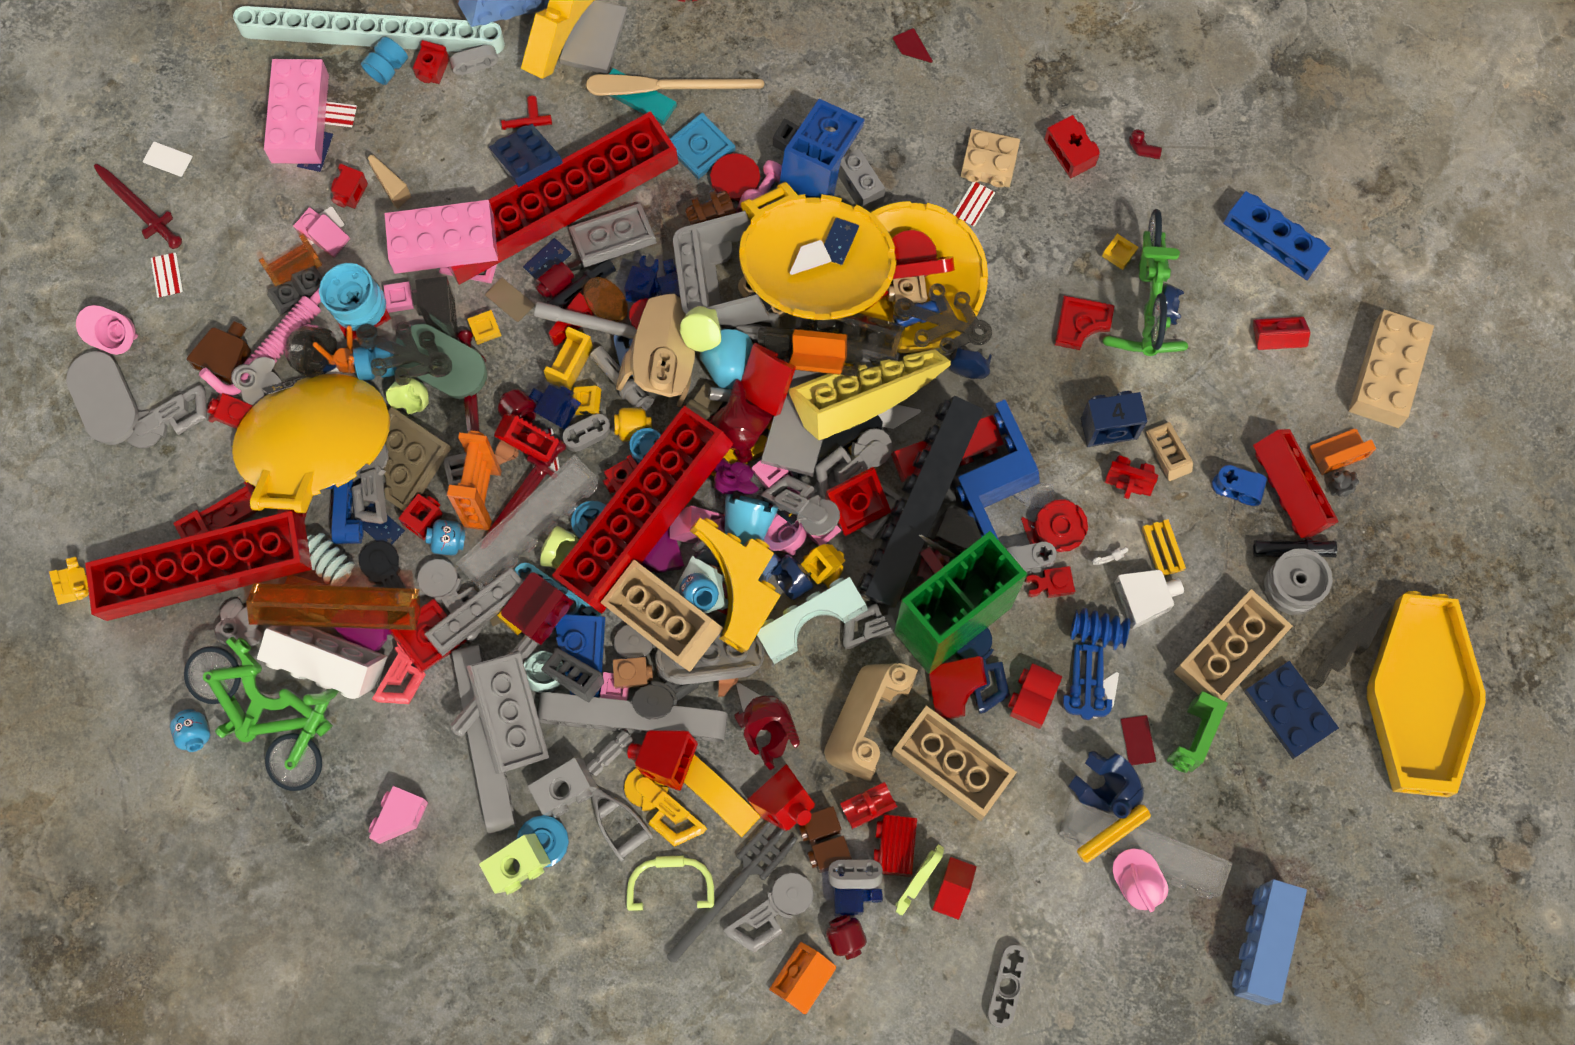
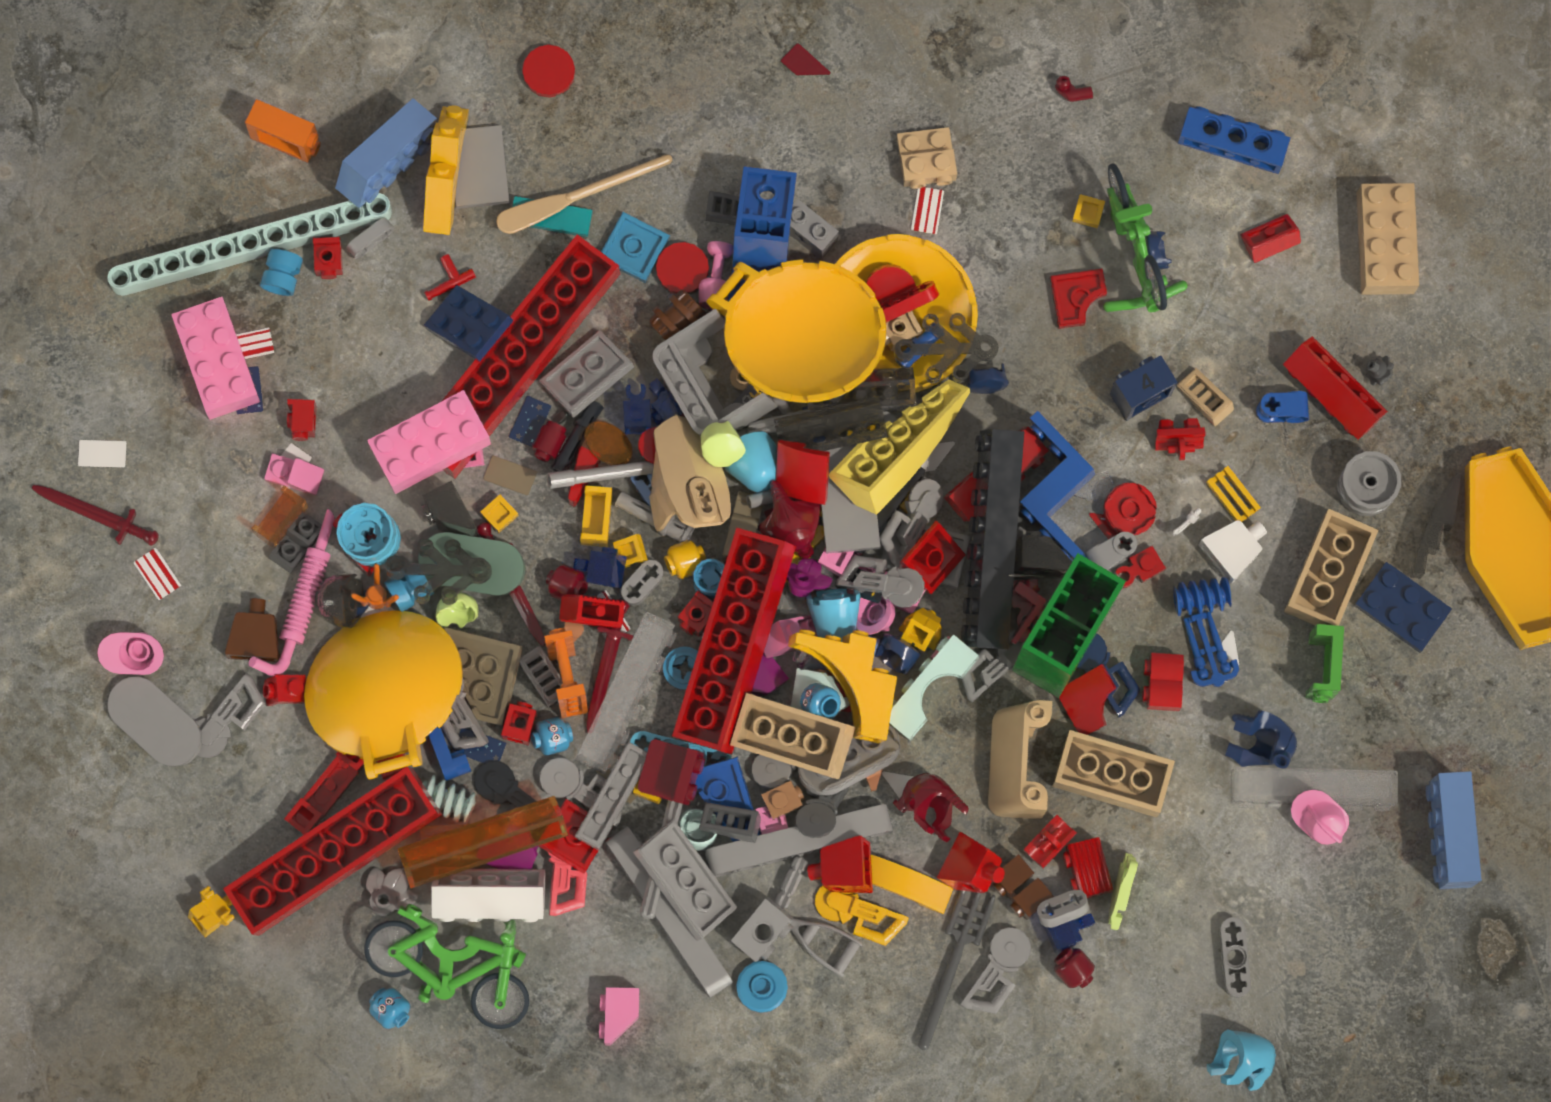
camera: 25 degrees left, 5 degrees up
(259, 377) = (302, 647): light grey plate -> none
(283, 385) = (328, 645): black sticker -> none
(393, 186) = (344, 400): tan slope -> none
(398, 297) = (402, 512): bright pink plate -> none
(500, 868) = (737, 1028): yellowish green brick -> none
(557, 547) = (664, 706): yellowish green hair -> none
(670, 861) = (888, 960): yellowish green piece -> none
(803, 977) = (1048, 1019): orange panel -> none
(810, 257) = (796, 331): white sticker -> none
(819, 351) = (842, 427): orange panel -> none
(840, 240) = (817, 305): dark blue sticker -> none
(954, 888) = (1155, 887): red slope -> none
(1072, 146) = (1009, 129): red brick -> none
(1113, 833) = (1282, 784): yellow axle -> none
(1138, 740) = (1273, 688): dark red sticker -> none
(1277, 548) = (1345, 454): black pin -> none
(1340, 451) = (1366, 337): orange panel -> none

